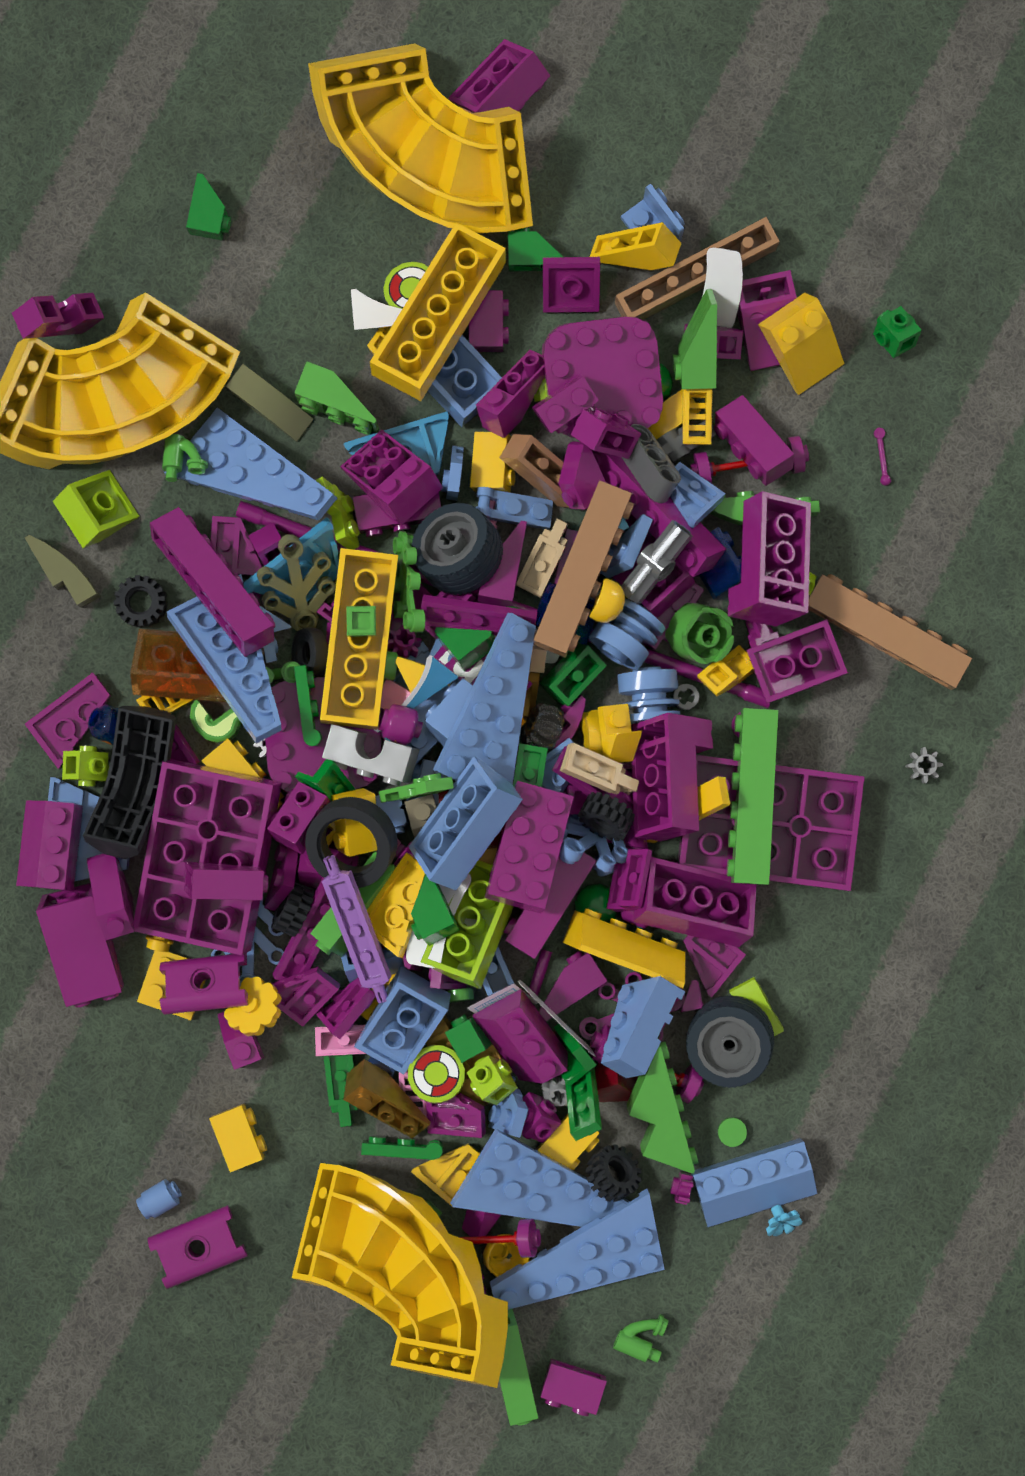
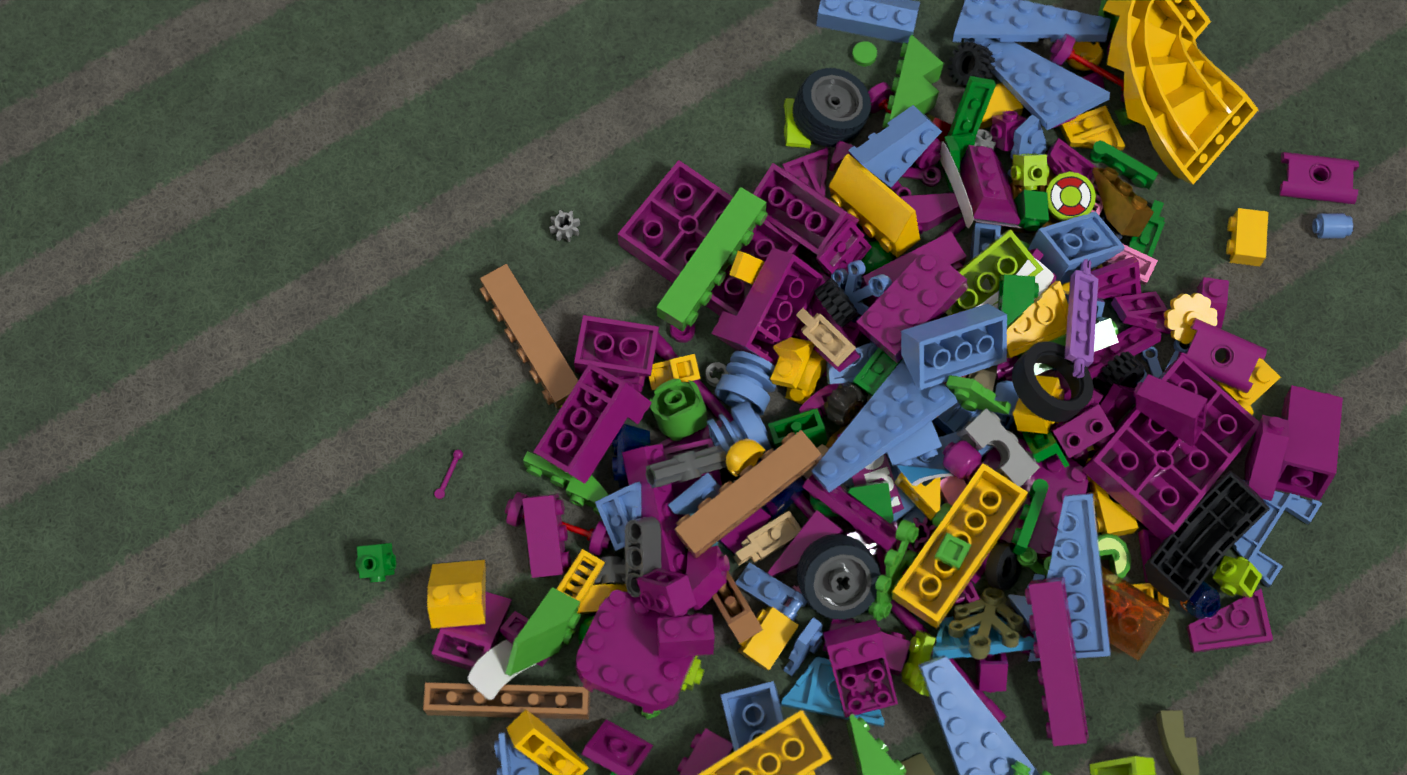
camera: 150 degrees left, 15 degrees down
(49, 845) = (1299, 527): magenta slope -> none
(124, 595) = (1128, 673): black tyre -> none
(232, 542) = (1022, 691): magenta wing -> none
(512, 395) = (720, 679): magenta slope -> none
(681, 1187) = (926, 29): magenta plate -> none

